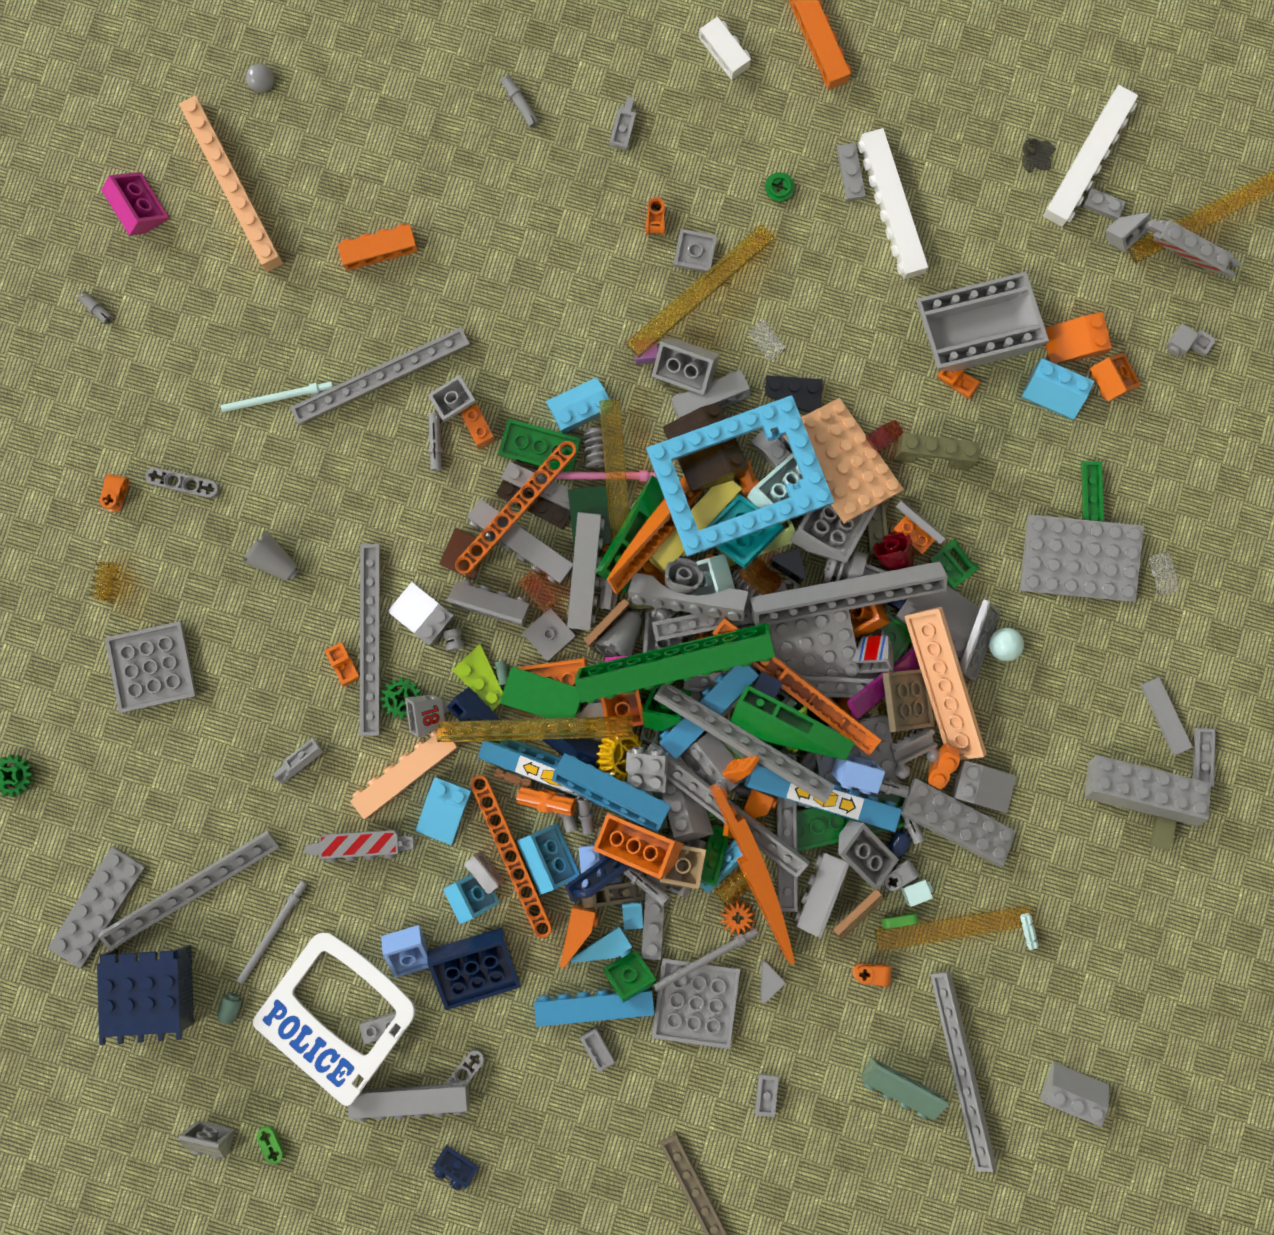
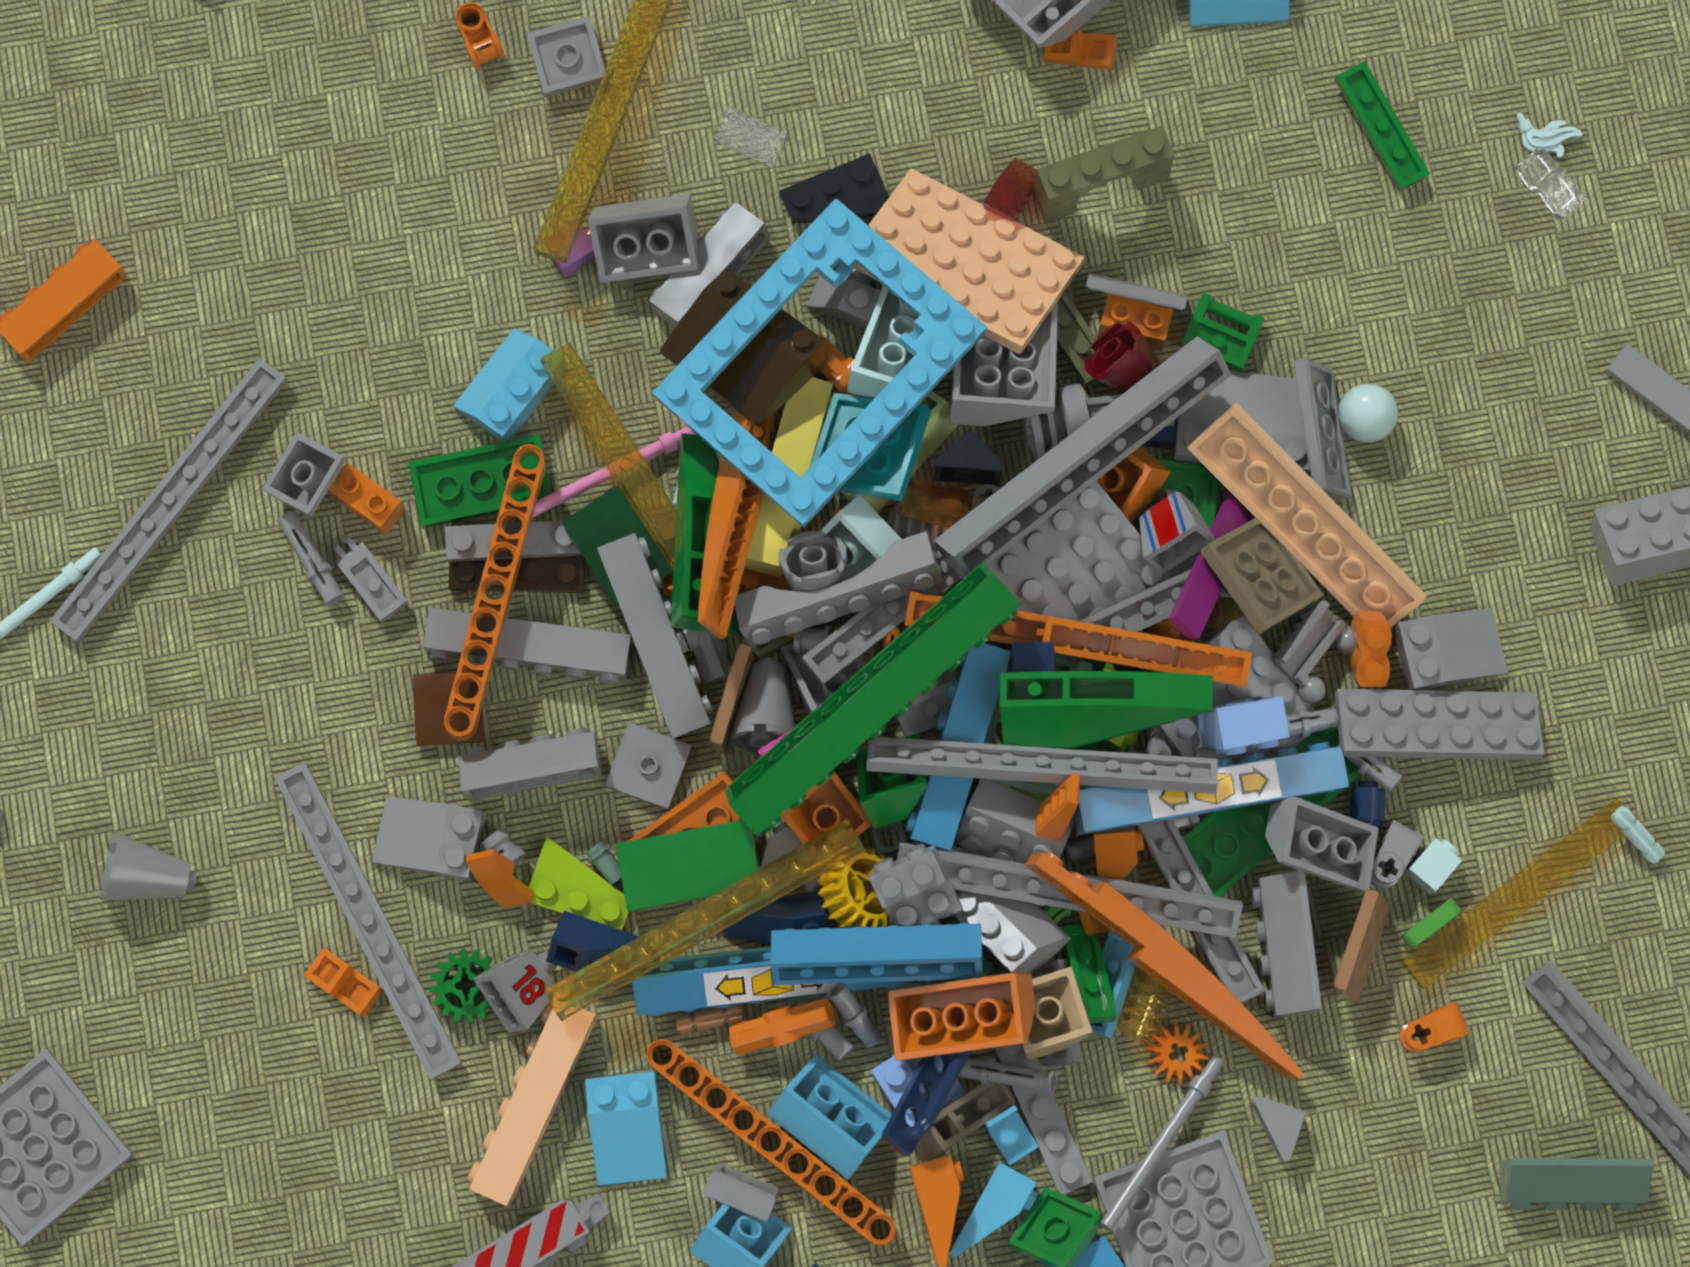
camera: 25 degrees left, 5 degrees down
(298, 760) = (352, 1171): light grey hinge -> none
(443, 653) = (496, 877): none -> orange slope
(458, 468) = (370, 580): none -> light grey hinge
(538, 591) = (596, 705): clear orange brick -> none
(594, 448) = (569, 438): light grey piece -> none
(1081, 558) = (1412, 223): light grey plate -> none
(1174, 549) = (1548, 138): none -> light aqua piece

